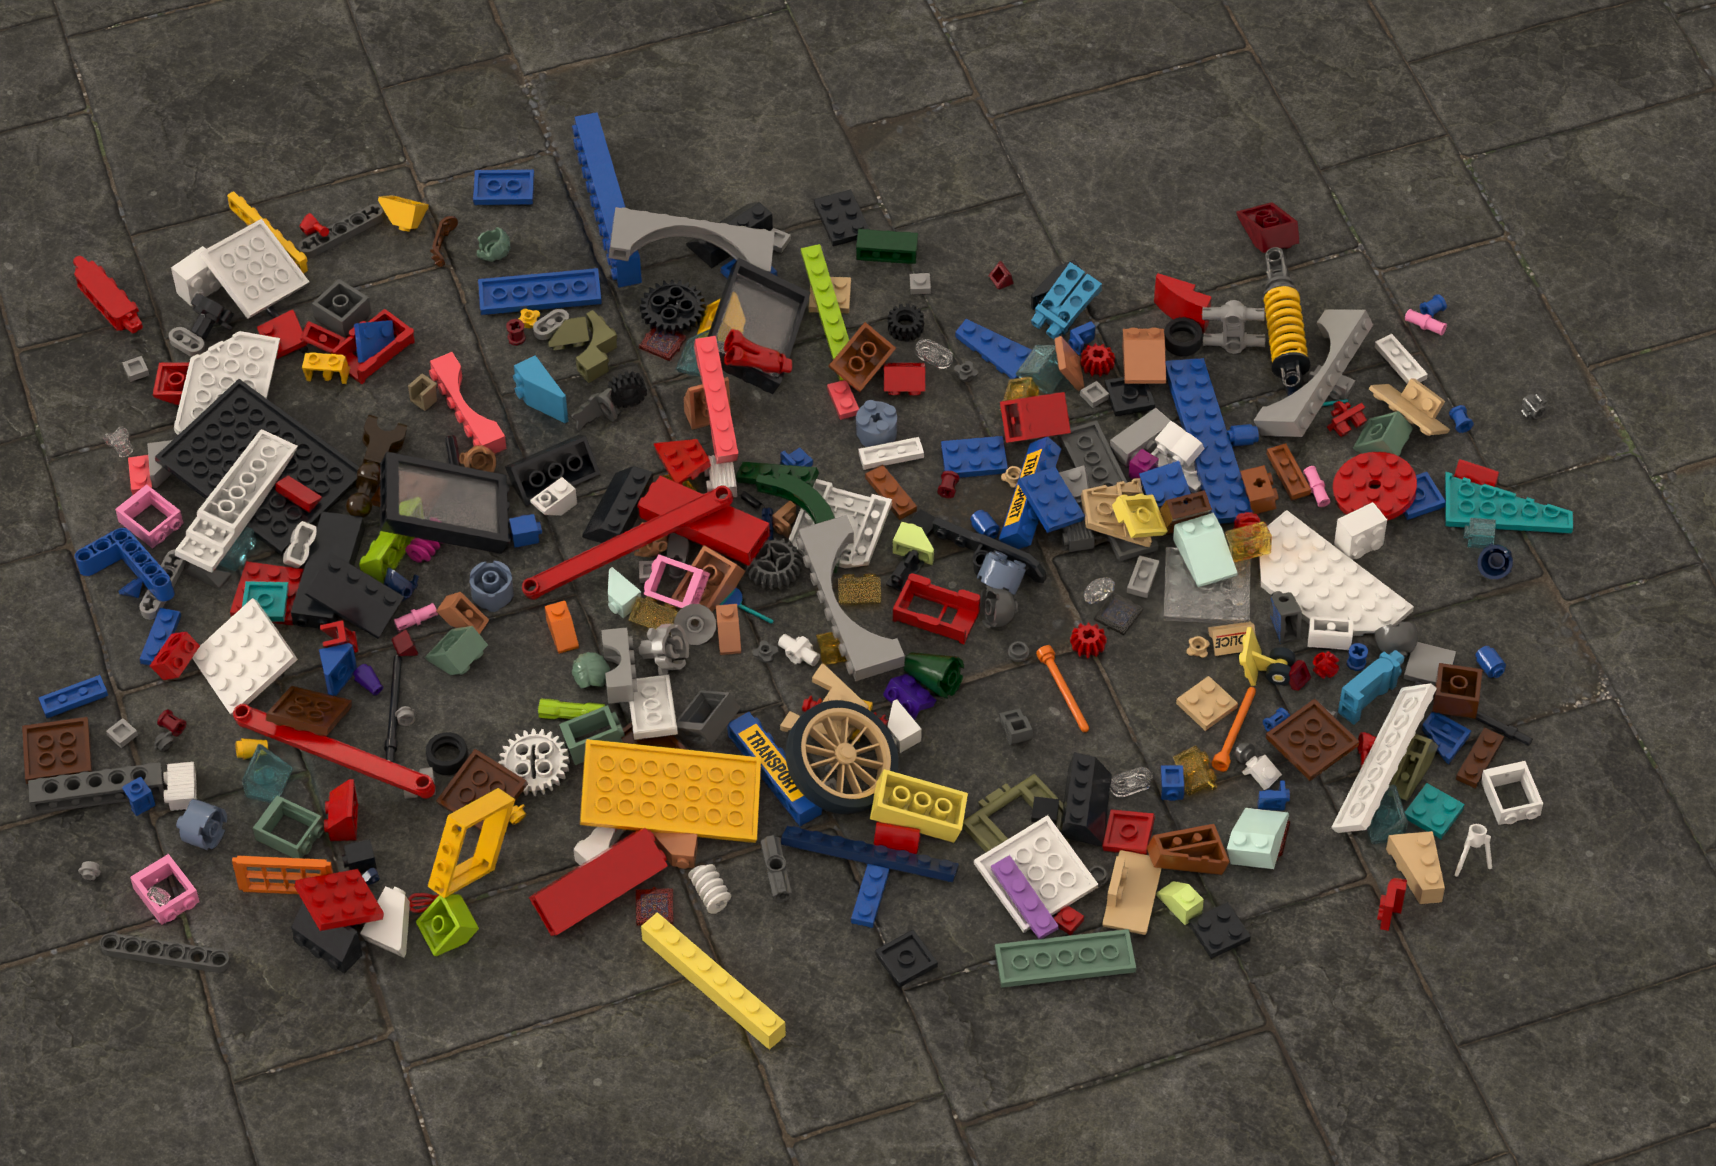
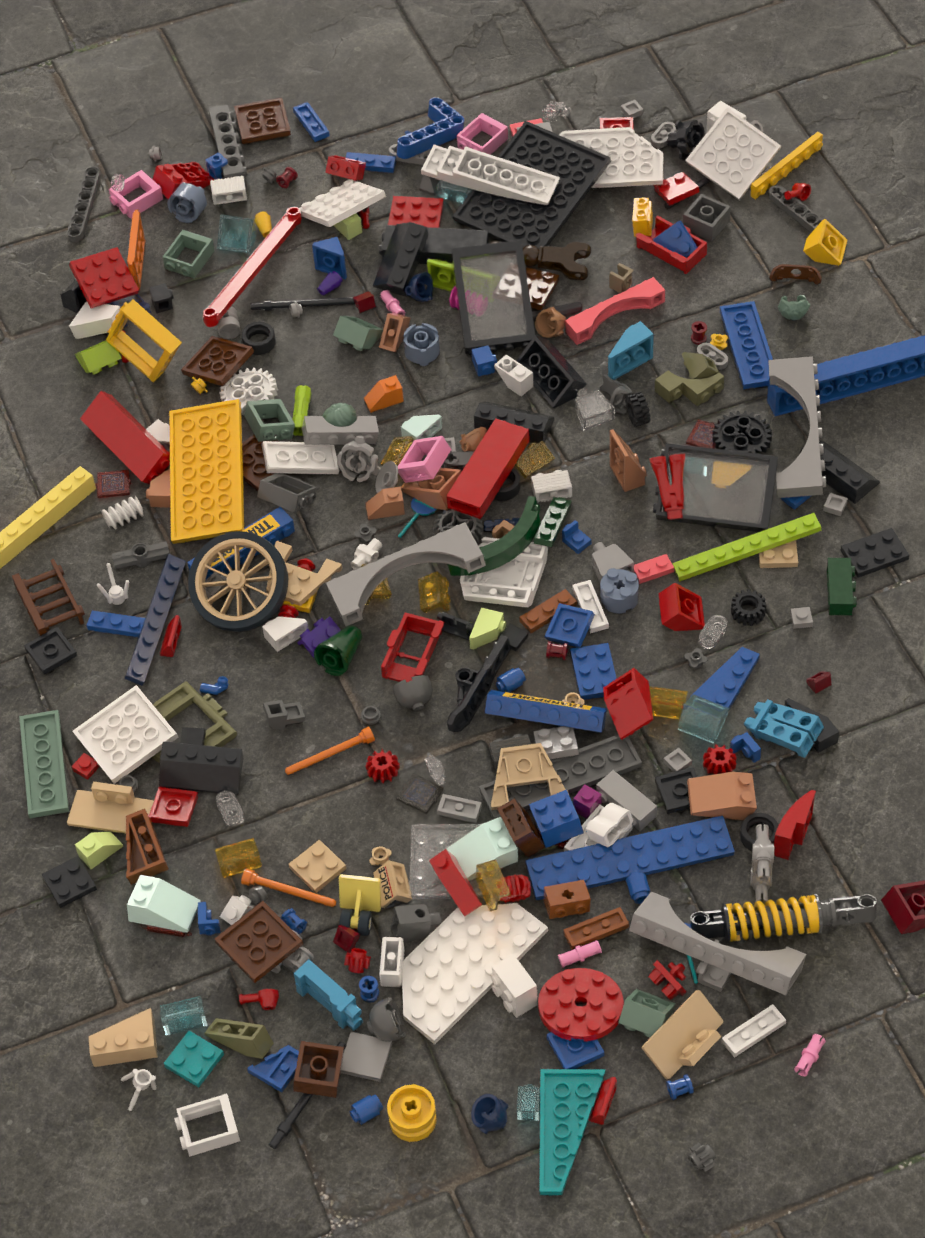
camera: 90 degrees right, 0 degrees up
(106, 296) = (704, 81): red hinge -> none
(122, 733) = (278, 152): light grey plate -> none
(149, 837) = (172, 175): none -> red slope
(270, 596) = (396, 209): teal plate -> none
(298, 493) = (504, 213): red slope -> none
(298, 550) = (454, 219): white brick -> none
(308, 710) = (291, 247): reddish brown plate -> none
(321, 337) = (674, 207): red slope -> none
(340, 635) = (357, 254): red window -> none
(342, 813) = (198, 283): red slope -> none
(503, 187) = (866, 308): blue plate -> none
(614, 434) = (593, 409): none -> clear torso
(627, 542) = (460, 419): red piece -> none
(682, 459) = (560, 454): red wing -> none
(716, 399) = (634, 437): coral arch -> none
(829, 893) = (116, 593): none -> white plant
(836, 432) = (610, 557): none -> light grey torso
(839, 981) = (36, 612): none -> reddish brown fence
(862, 357) = (690, 569): dark orange slope -> none
(919, 468) = (569, 625): none -> blue plate
(919, 805) = (192, 642): light yellow brick -> none
(972, 797) = (220, 686): none -> blue arm
(1000, 572) = (442, 685): sand blue brick -> none
(1024, 897) = (98, 724): medium lavender plate -> none
(1051, 499) = (527, 718): blue plate -> none
(1069, 363) = (704, 732): nougat plate -> none
(1140, 515) = (512, 784): light yellow plate -> none
(1172, 782) = (223, 835): blue bracket -> none
(1242, 572) = (455, 881): none -> red slope
(1384, 758) = (240, 1004): white plate -> none
(1391, 901) = (79, 1011): red slope -> none
(1433, 306) = (831, 1061): blue bush -> none
(1479, 757) = (256, 1101): reddish brown plate -> none
(1496, 622) = (411, 1113): none -> yellow wheel

